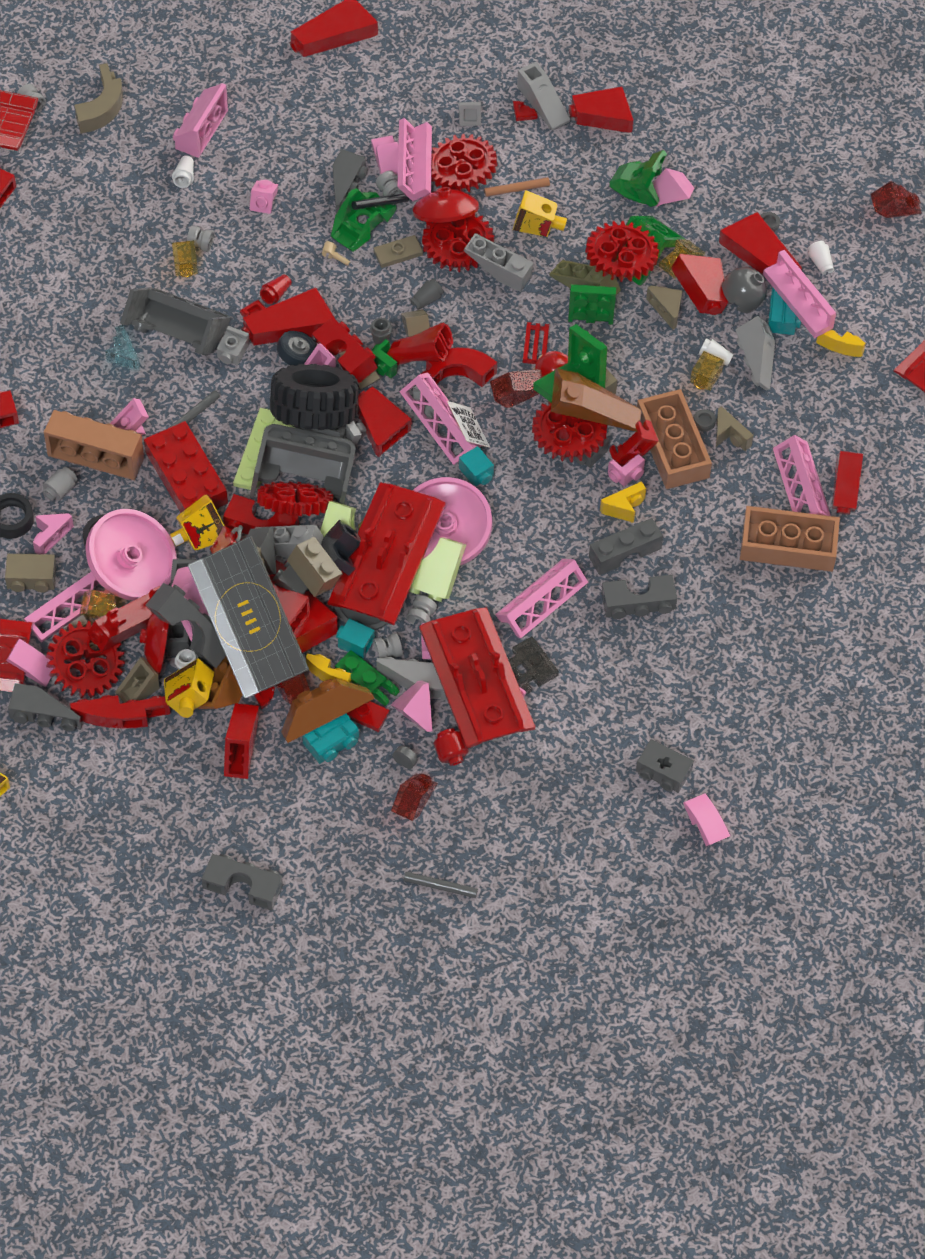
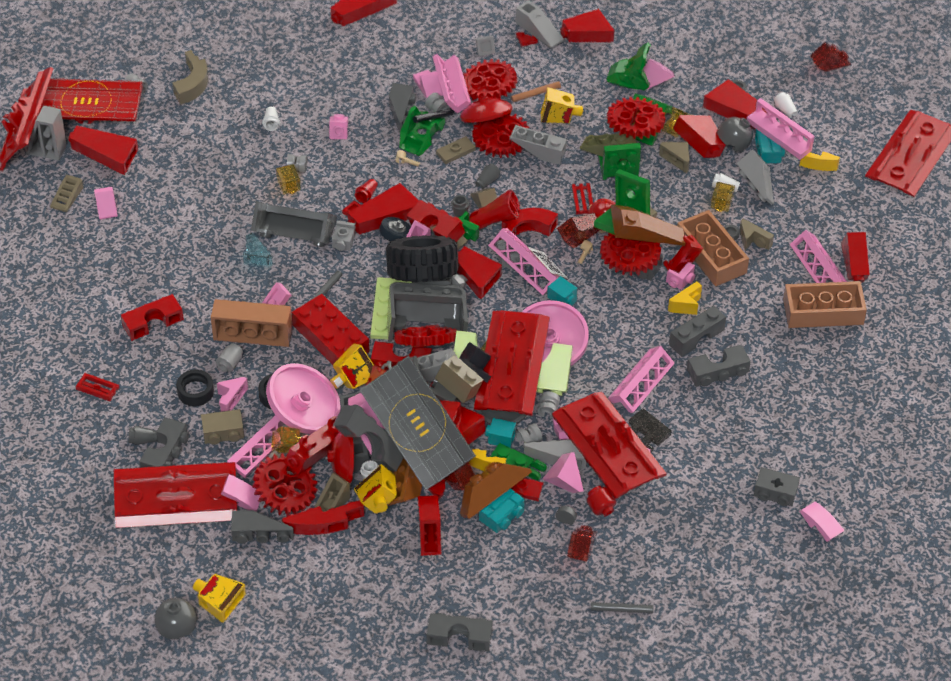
camera: 10 degrees left, 10 degrees down
(202, 121) = (276, 80): bright pink slope -> none
(522, 408) = (586, 246): none -> tan hand

